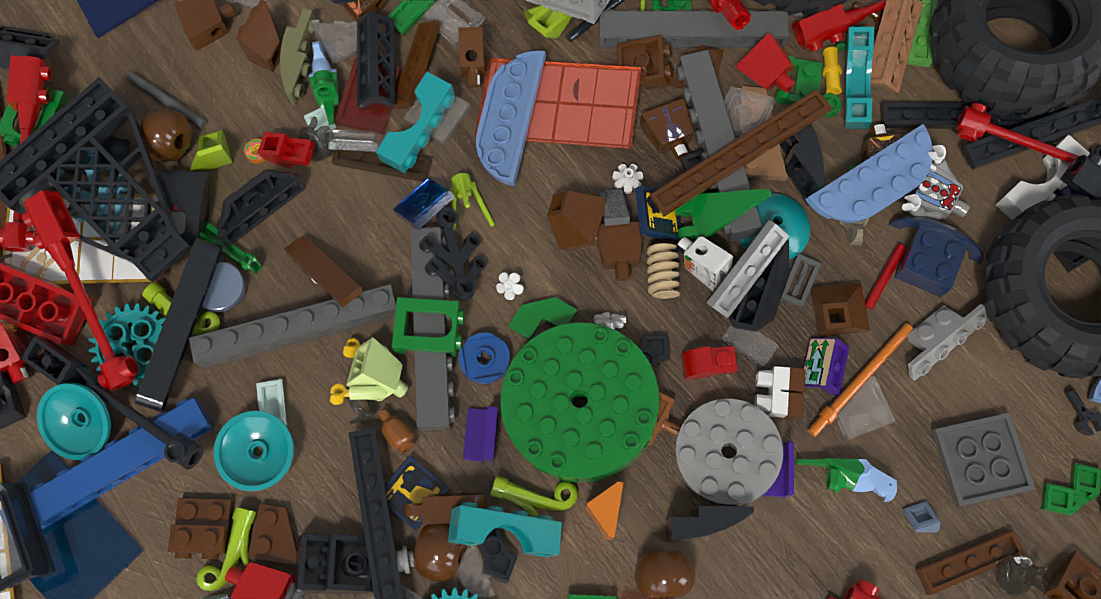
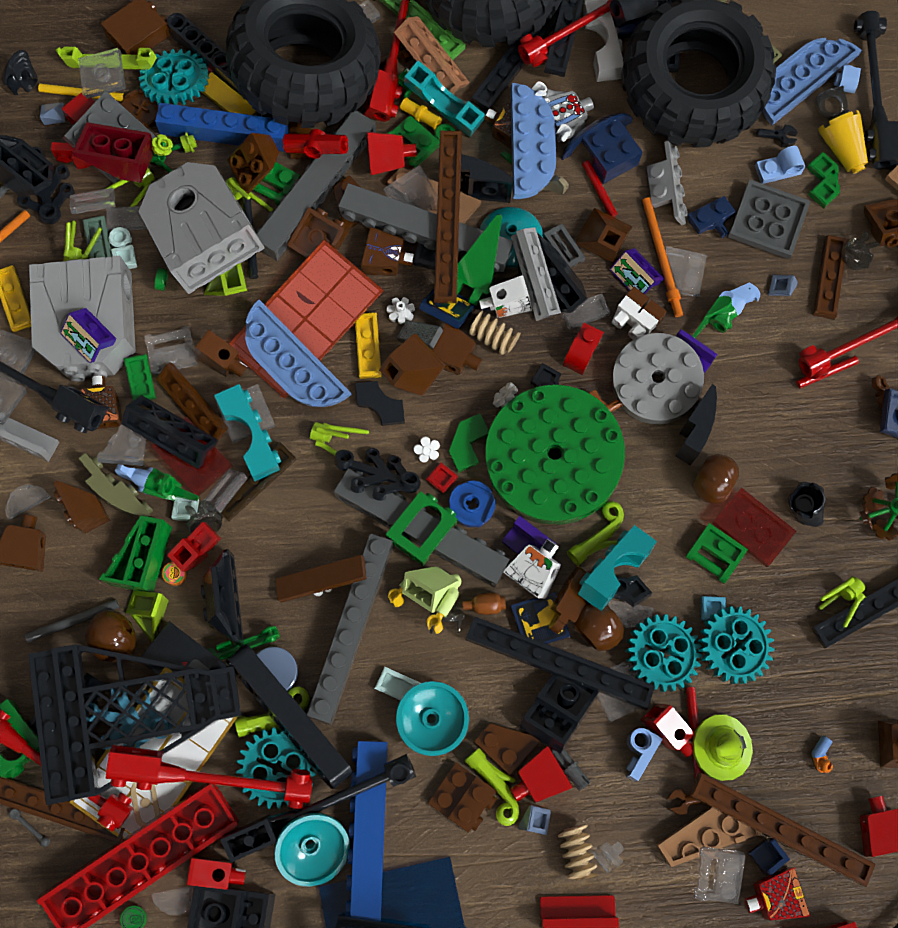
camera: 60 degrees left, 0 degrees up
(250, 113) = (140, 557): none -> green wedge
(404, 560) = (589, 654): light grey plate -> none
(423, 203) = (318, 469): clear blue tile -> none
(454, 455) = (535, 568): none -> white torso
(492, 316) = (442, 478): none -> red tile
(525, 228) = (388, 409): none -> black tile
(574, 171) = (368, 346): none -> yellow tile
(605, 510) = (647, 487): orange slope -> none
(941, 402) = (712, 217): none -> dark blue plate
(1055, 440) = (785, 165): none -> light blue plate

